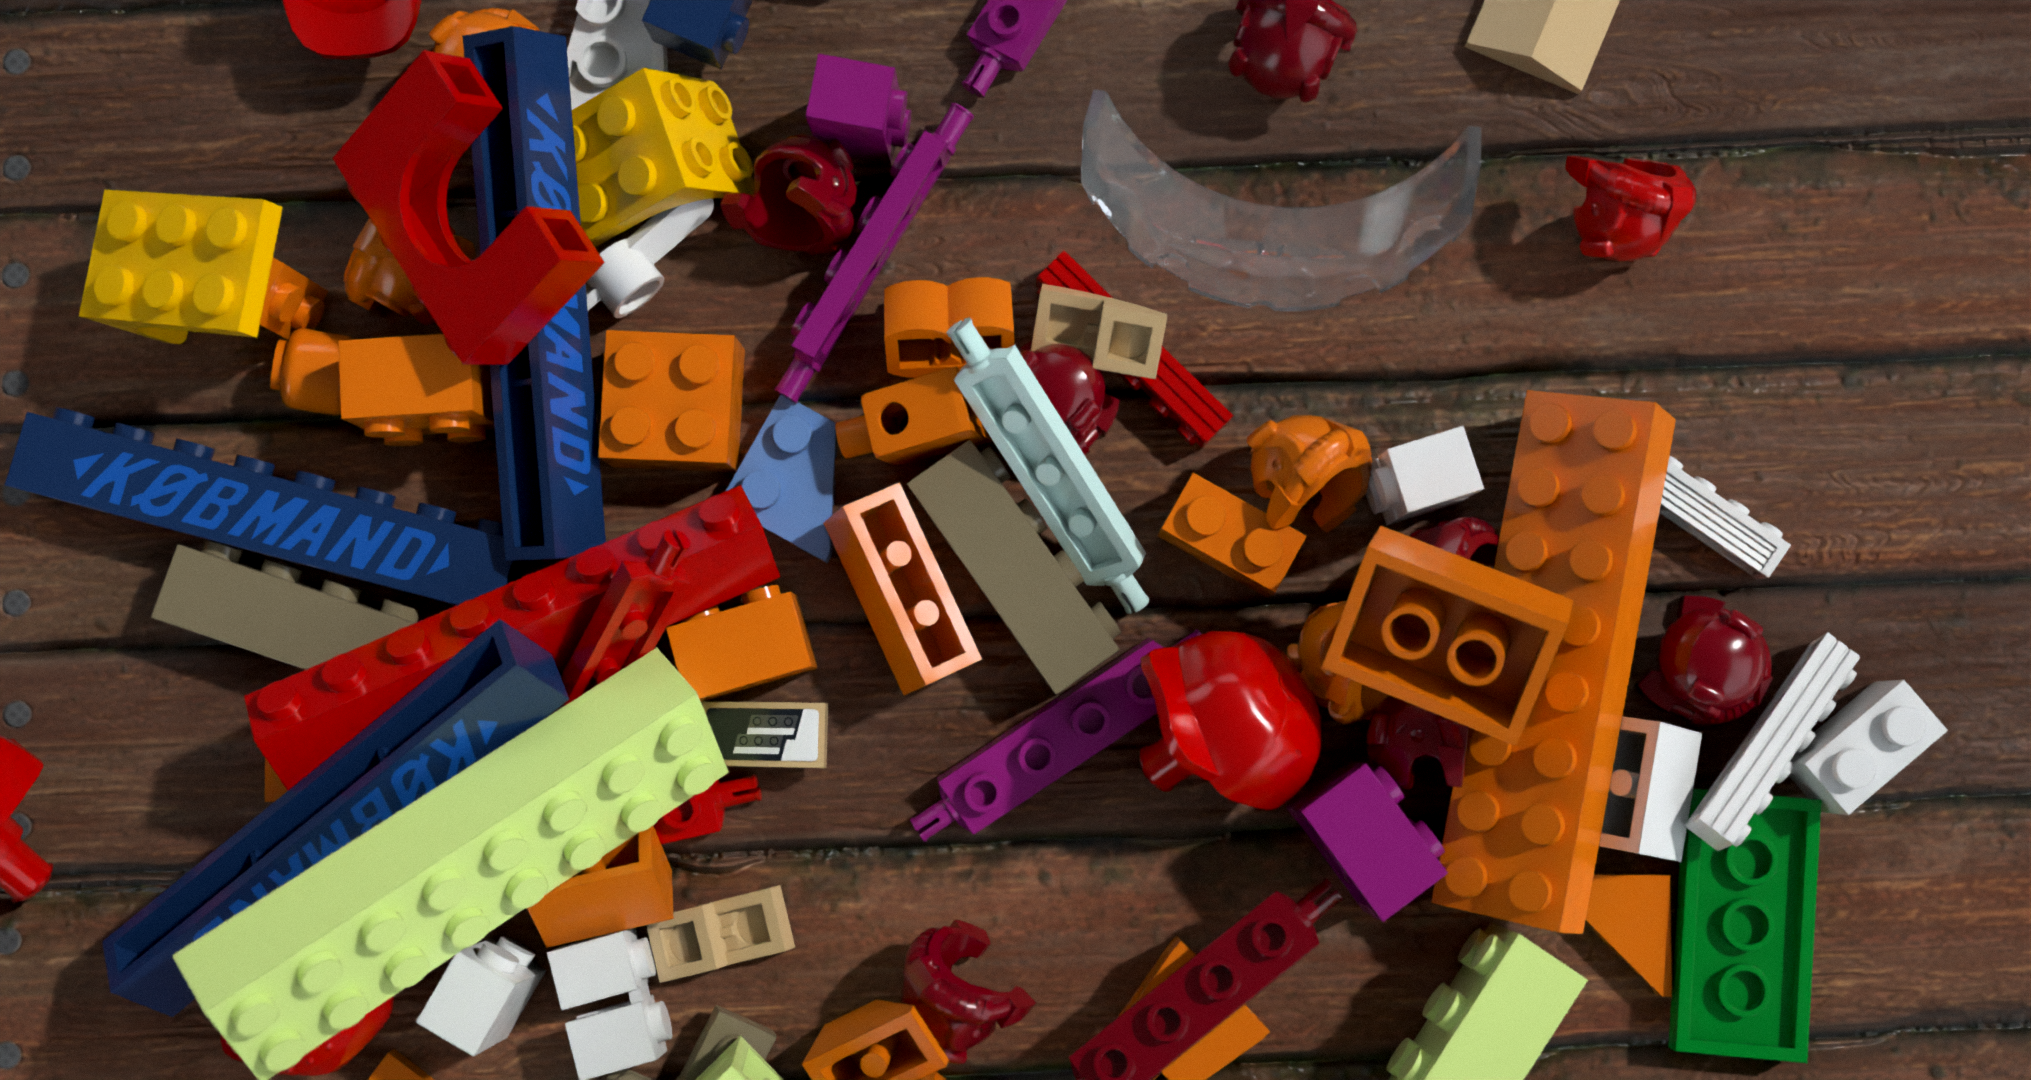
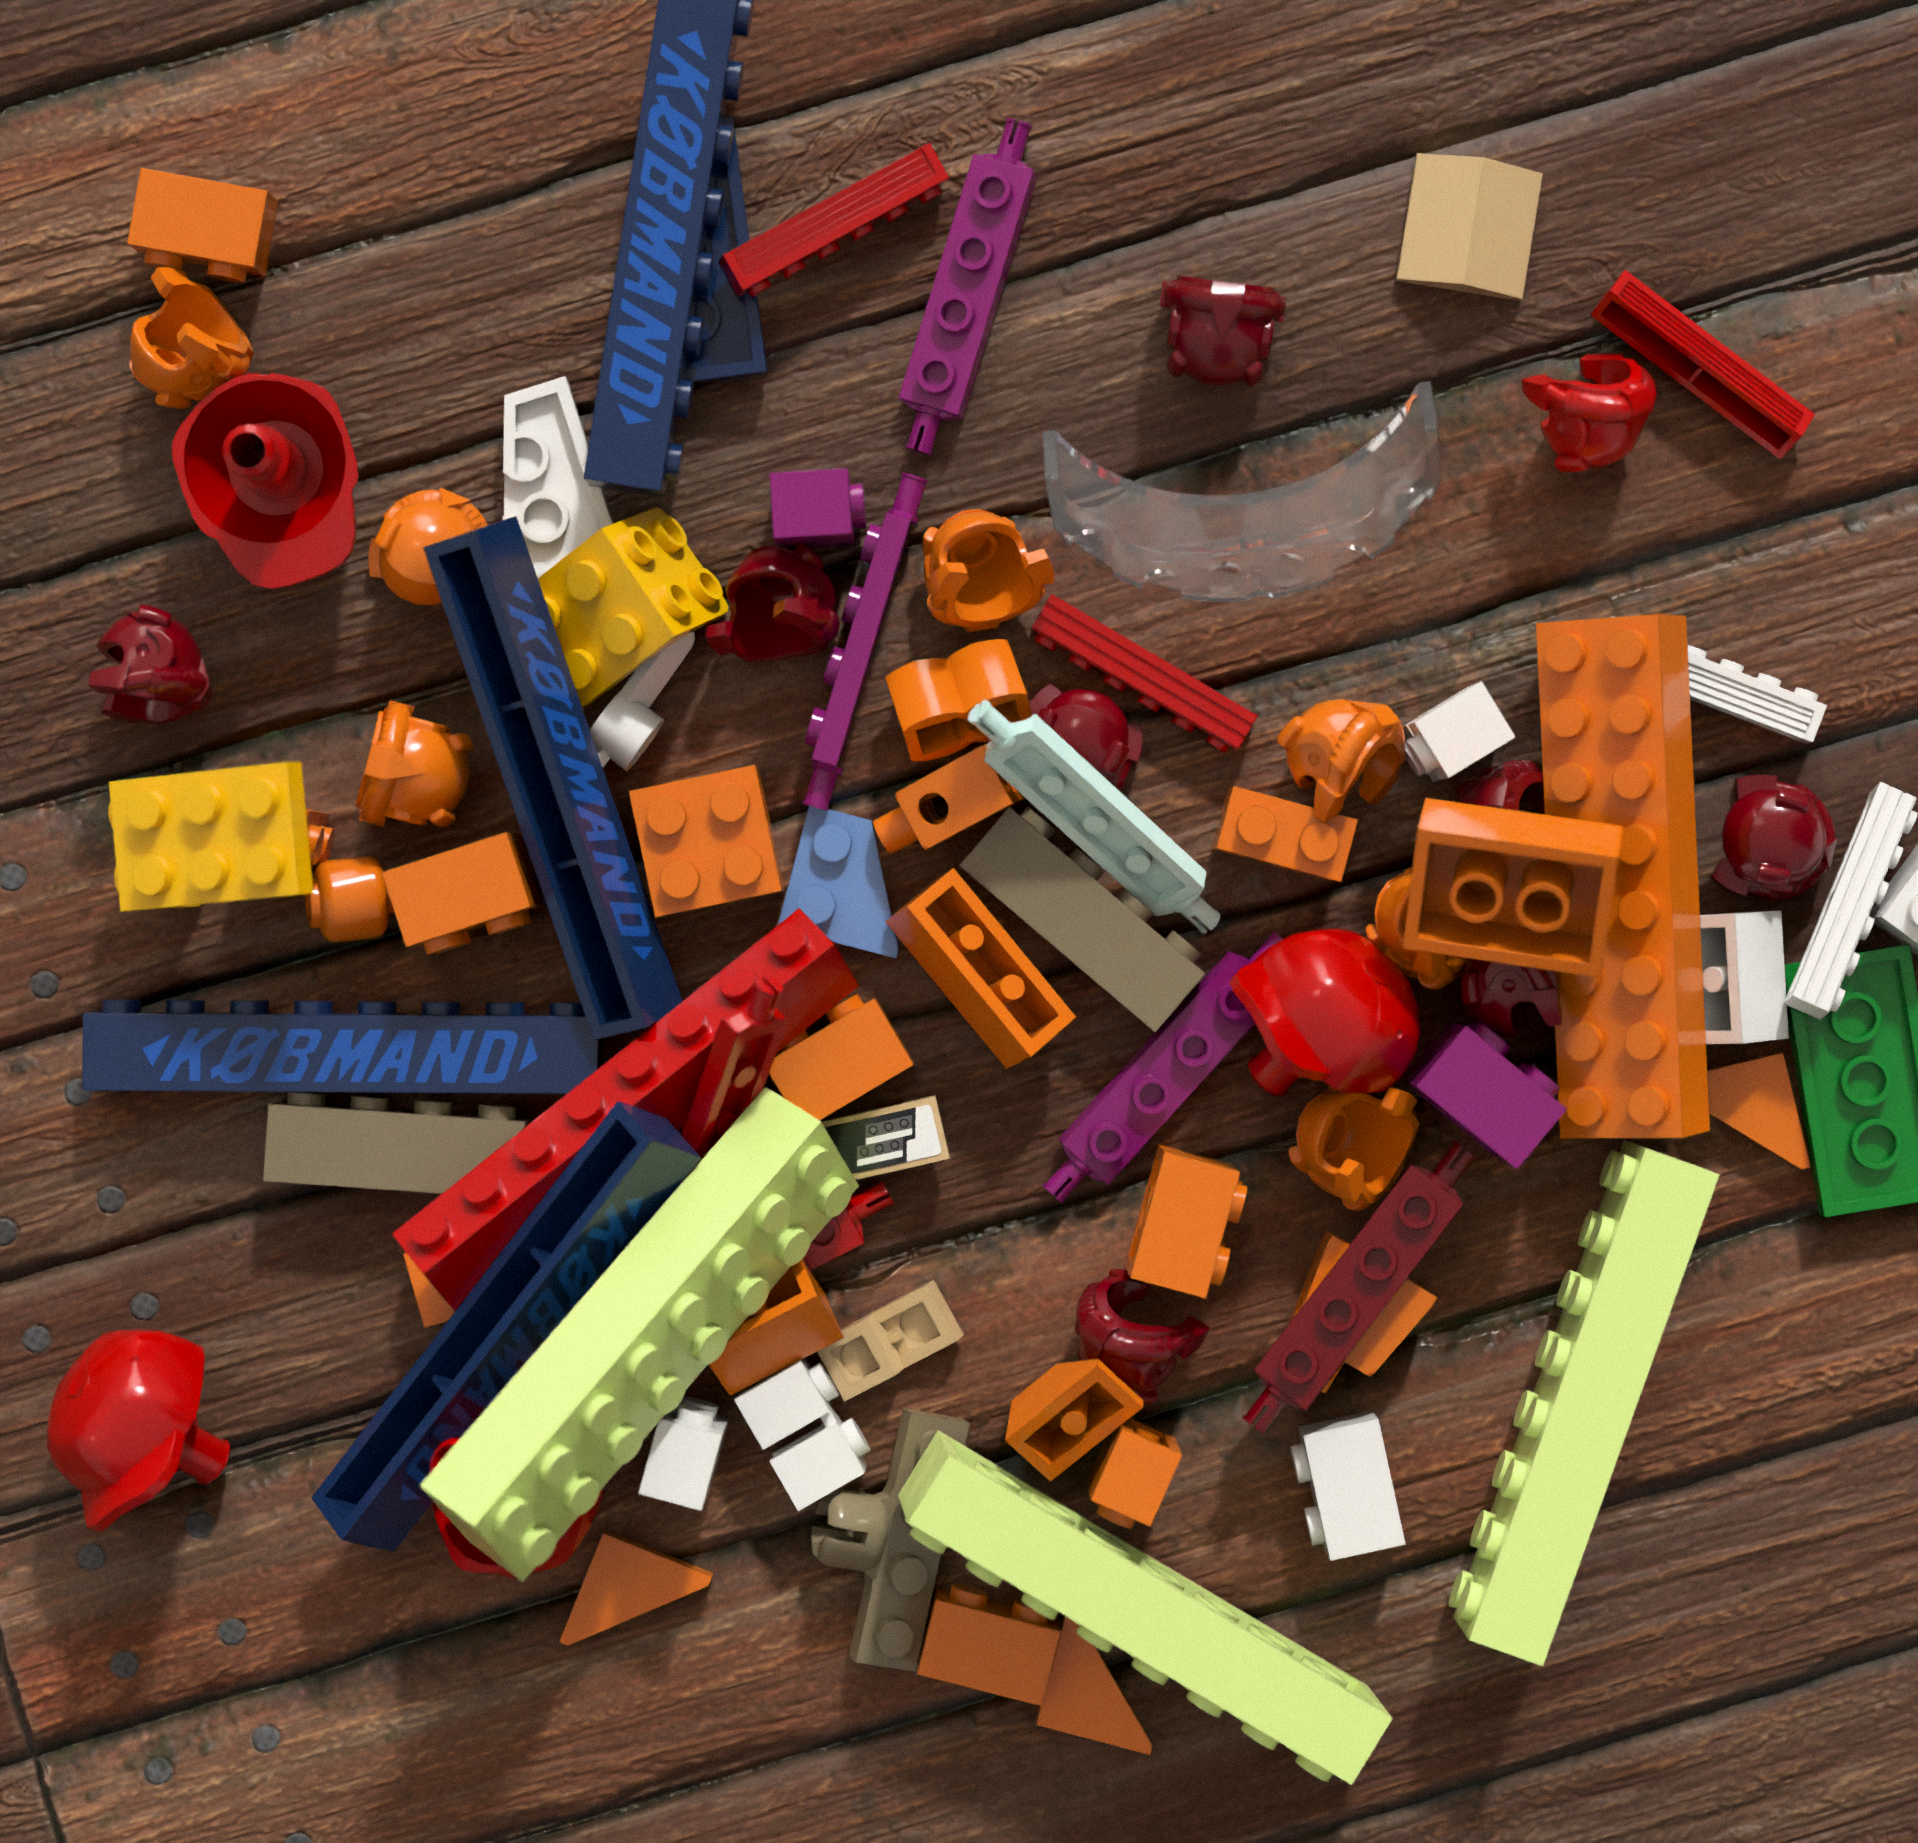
camera: 20 degrees left, 5 degrees up
(193, 96) = (158, 670): none -> dark red helmet
(401, 176) = (398, 700): red arch -> none
(1002, 212) = (981, 571): none -> orange helmet
(1036, 890) = (1185, 1221): none -> orange brick
(1109, 330) = (1118, 665): tan slope -> none
(1226, 855) = (1355, 1143): none -> orange helmet
(1742, 192) = (1703, 364): none -> red piece

